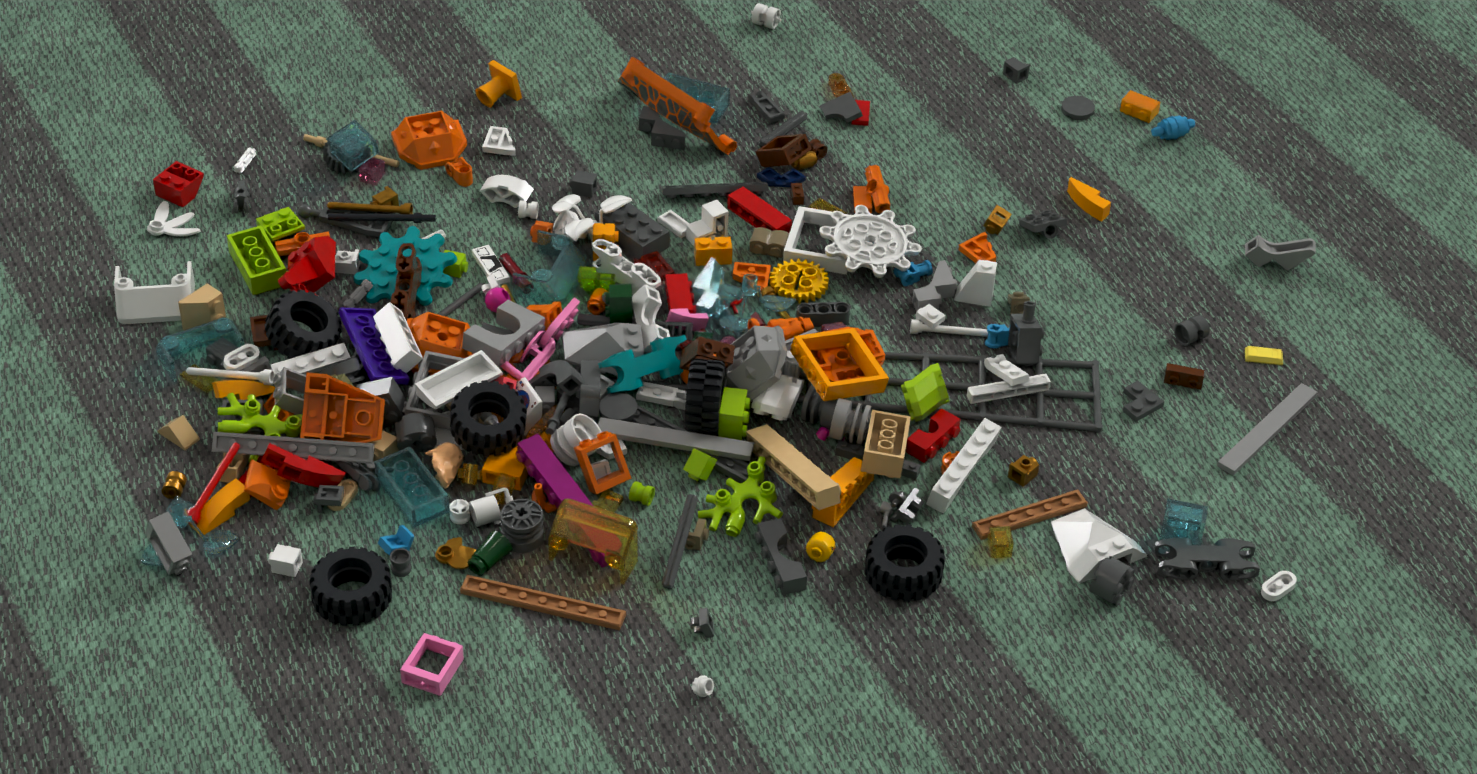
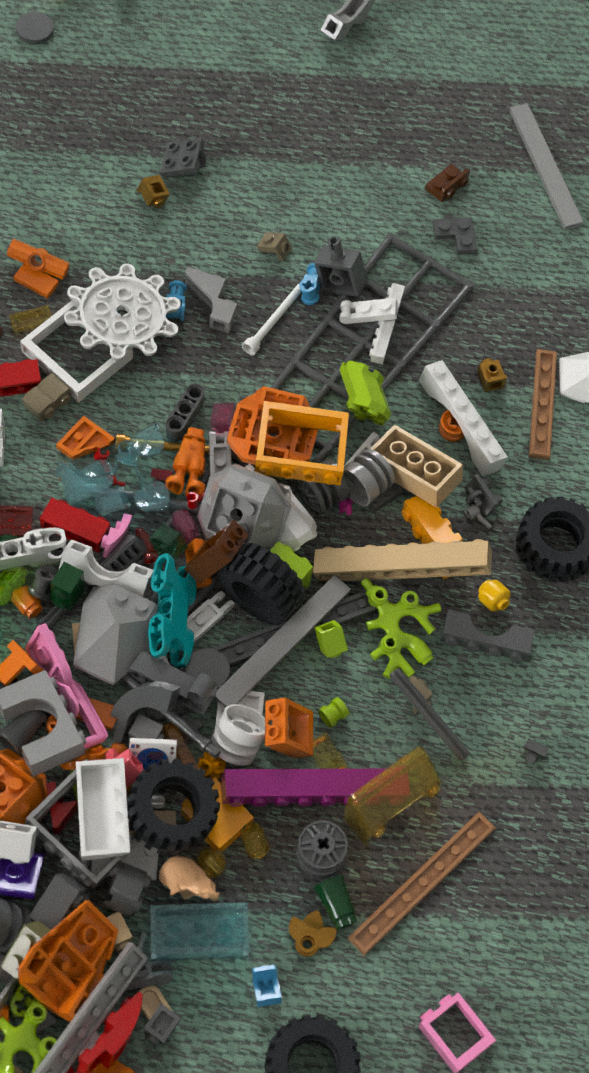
camera: 65 degrees left, 20 degrees up
(400, 562) = (298, 991): dark grey wheel -> none
(459, 511) = (257, 895): white wheel -> none
(486, 509) = (275, 871): white piece -> none
(539, 498) = (291, 824): orange plant -> none
(719, 249) = (27, 454): light orange piece -> none
(811, 284) = (135, 394): yellow gear -> none
(930, 316) = (250, 326): white bracket -> none
(941, 427) = (403, 404): red arch -> none
(978, 248) = (182, 231): orange wing -> none
(978, 284) = (240, 260): white slope -> none
(1000, 542) = (568, 447): clear yellow brick -> none
(1088, 199) = (174, 103): light orange slope -> none
(1191, 330) = (401, 140): dark grey wheel -> none
(1263, 355) = (456, 110): light yellow tile -> none

